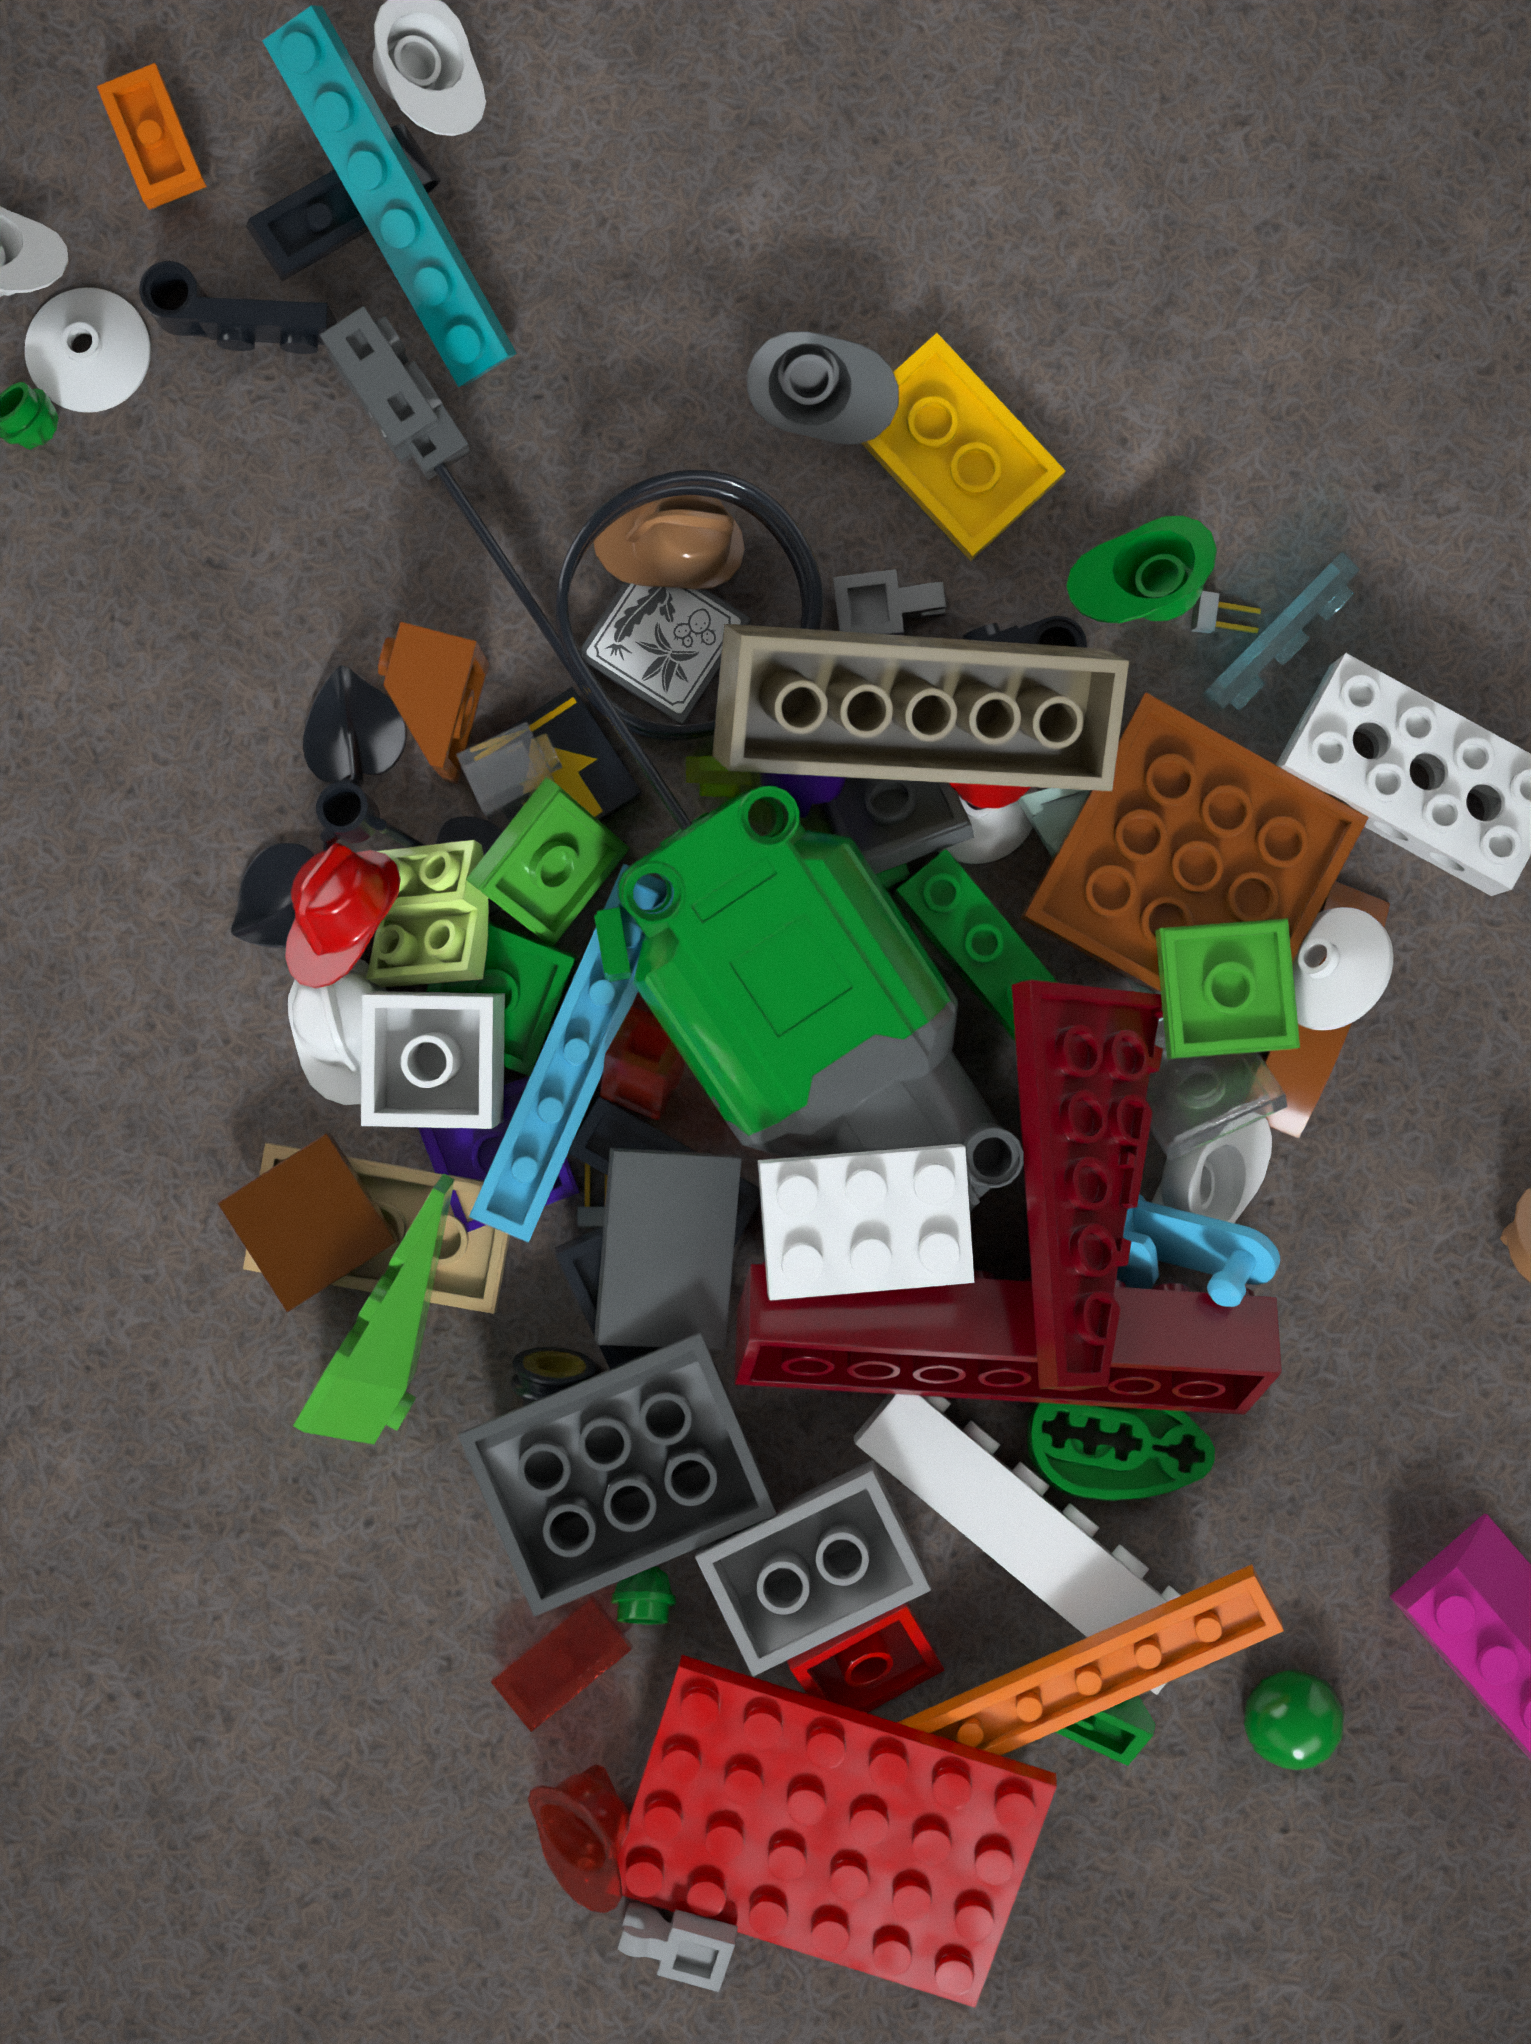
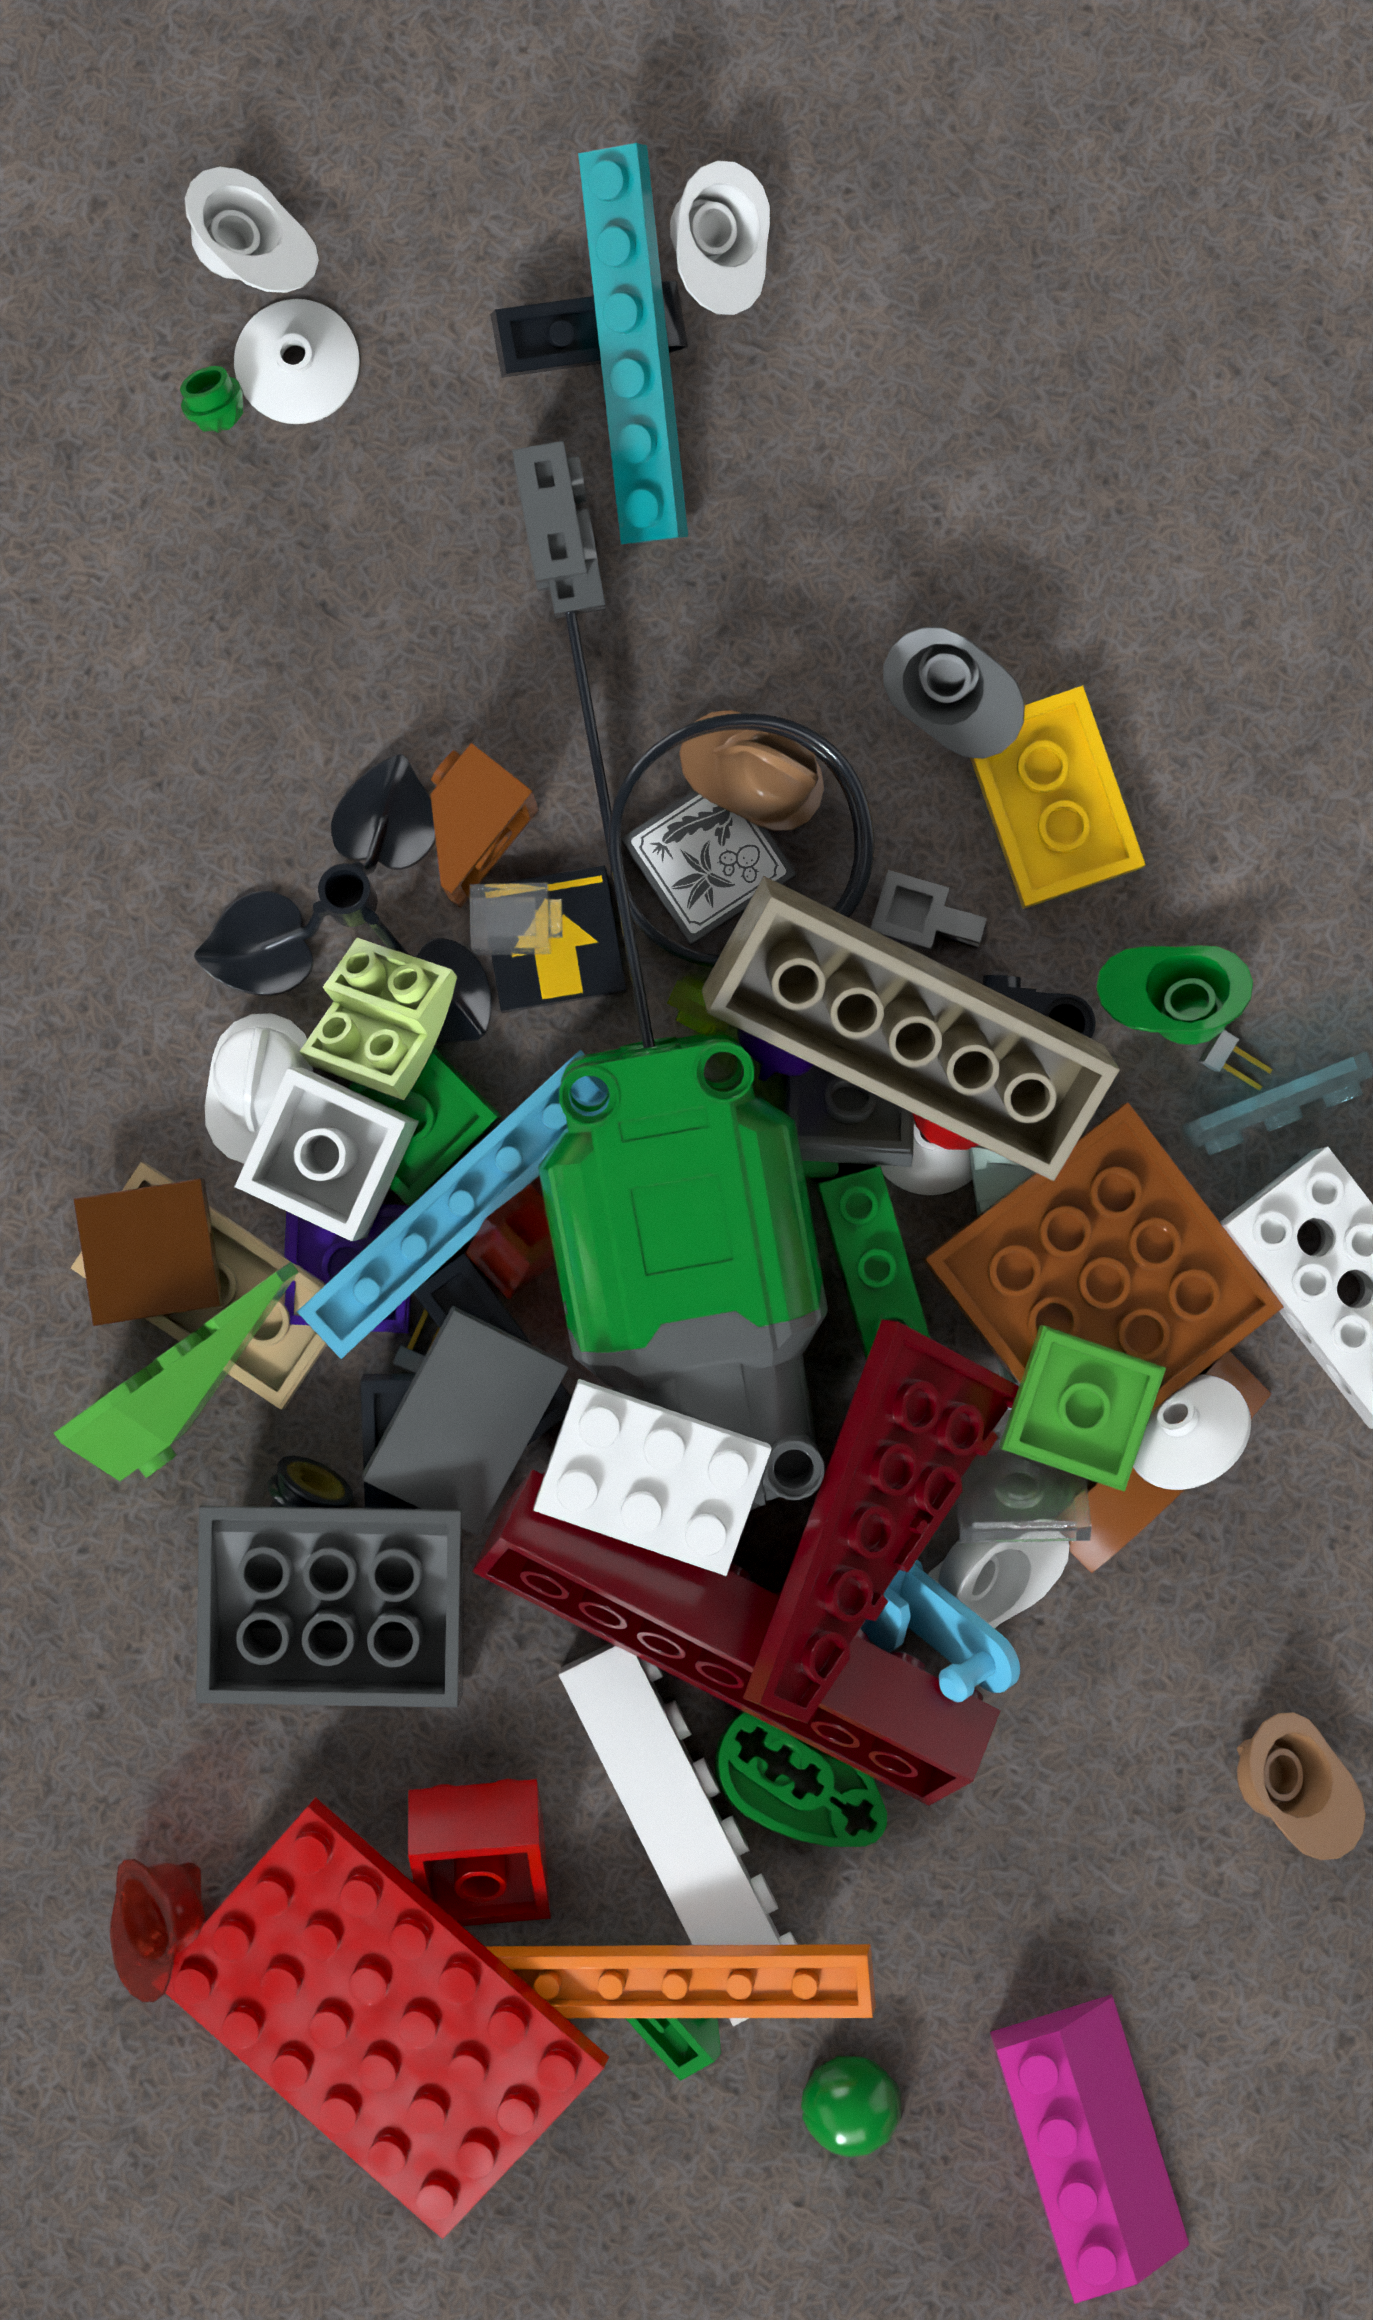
camera: 30 degrees right, 0 degrees up
(151, 136) = (440, 191): orange plate -> none
(232, 321) = (441, 396): black plate -> none
(337, 909) = (300, 979): red piece -> none
(548, 862) = (511, 1019): bright green tile -> none
(561, 1663) = (203, 1757): clear red plate -> none
(612, 944) = (536, 1120): green tile -> none
(644, 1598) = (304, 1730): green plate -> none
(687, 1949) = (204, 2067): light grey plate -> none
(813, 1568) = (470, 1771): light grey slope -> none

